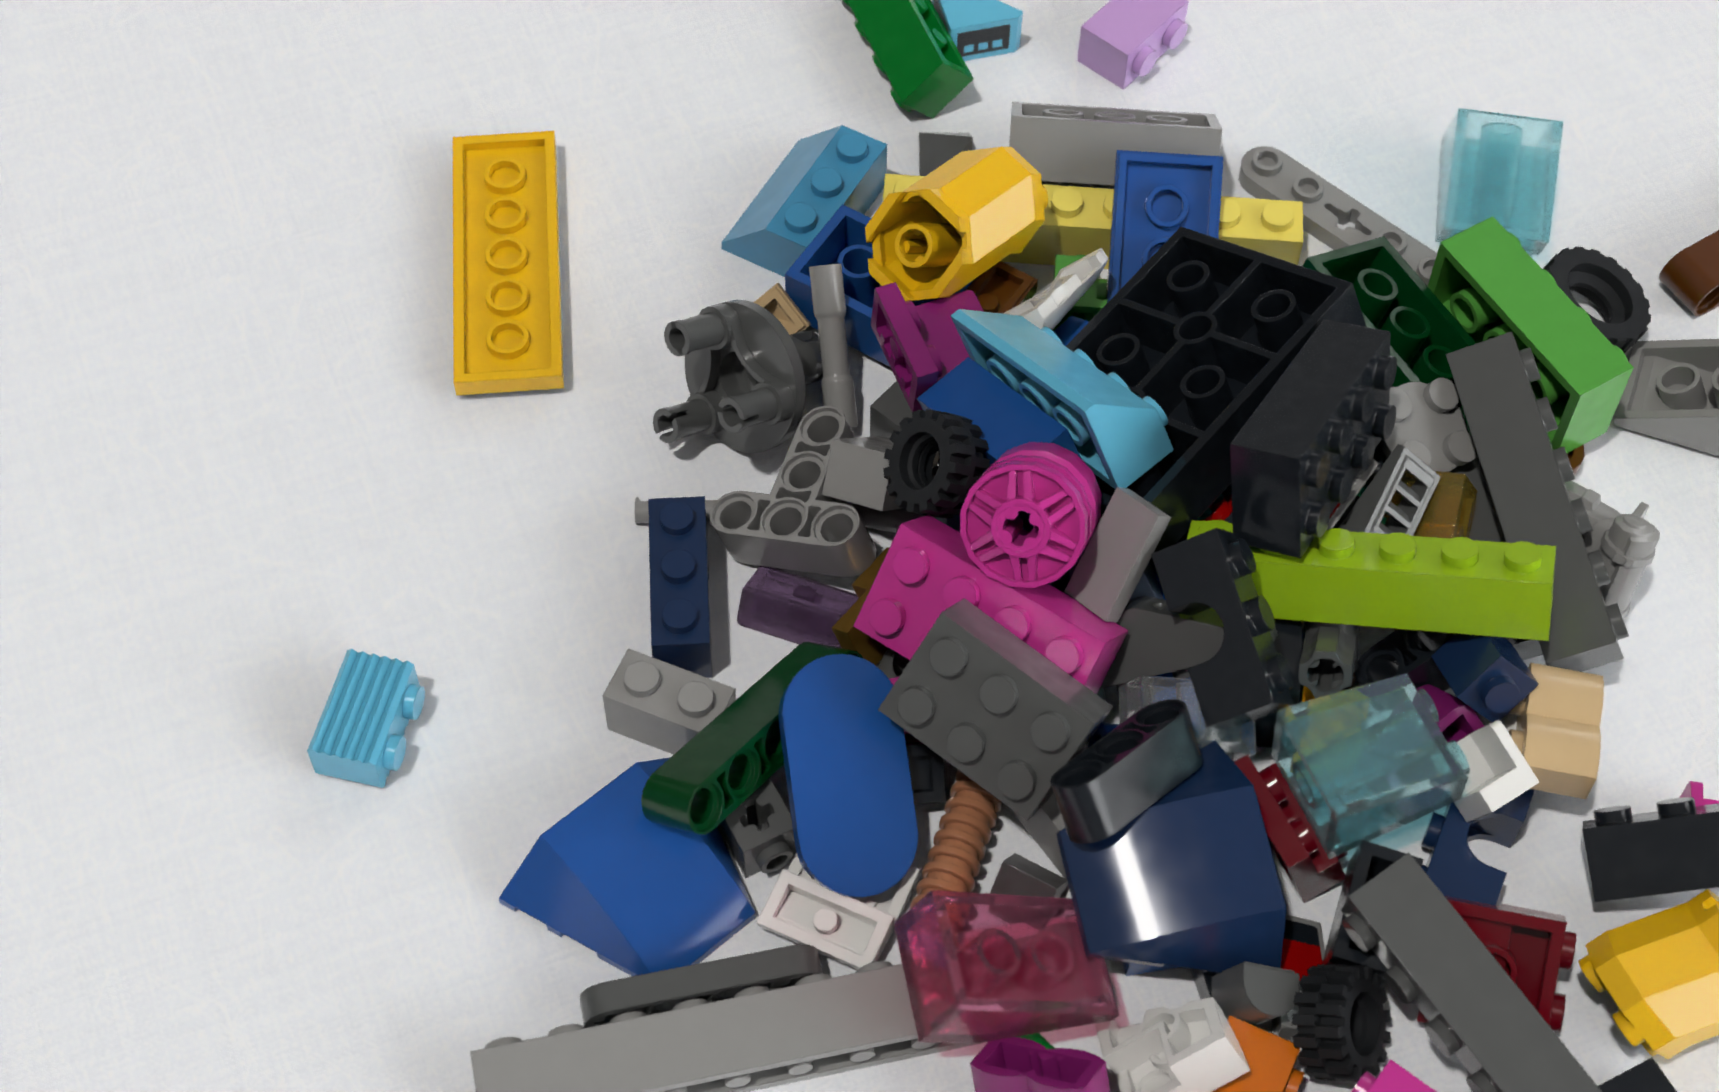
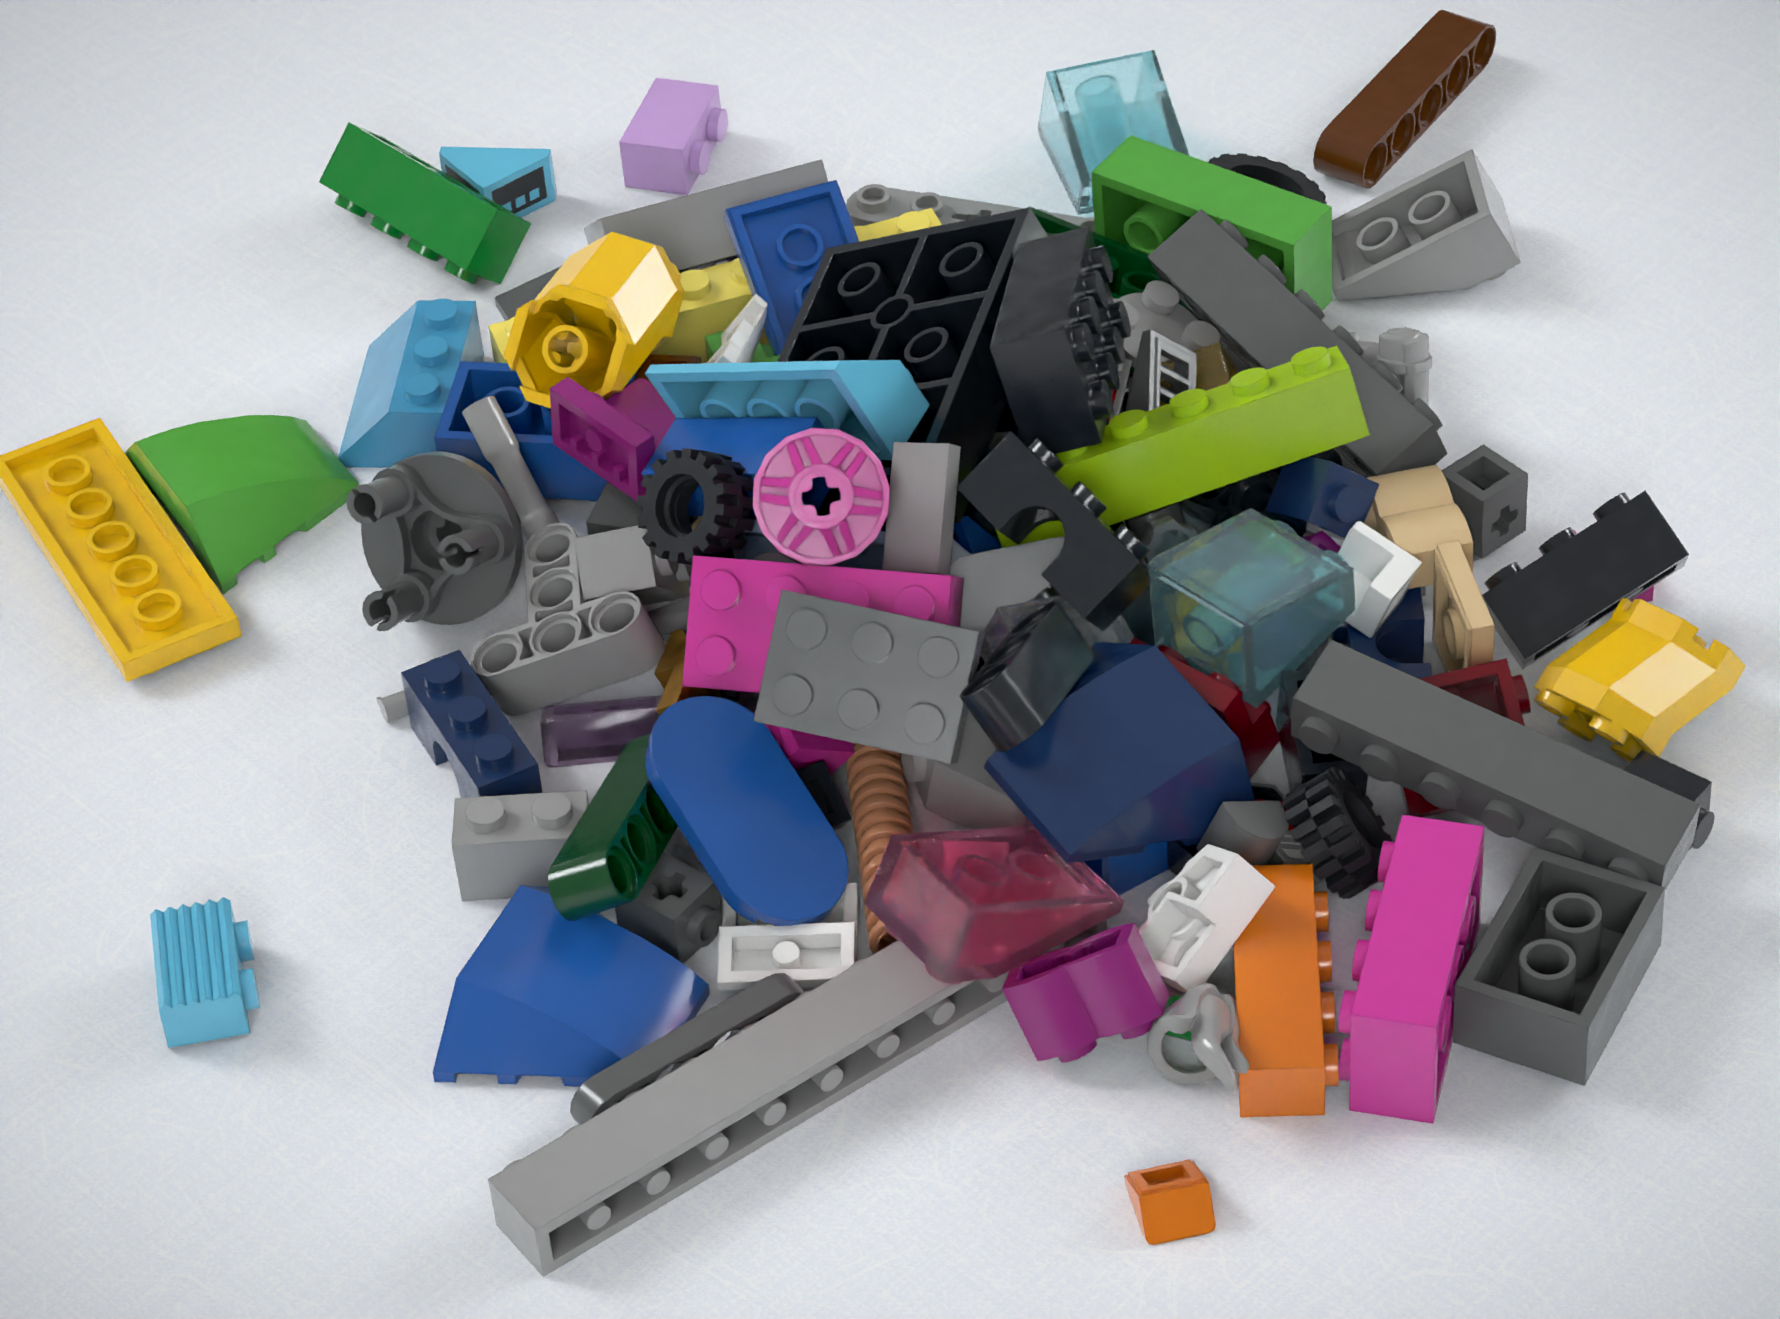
camera: 20 degrees left, 15 degrees down
(635, 243) = (242, 485): none -> bright green wedge
(1552, 845) = (1460, 617): none -> tan tile
(1639, 711) = (1490, 497): none -> dark grey brick

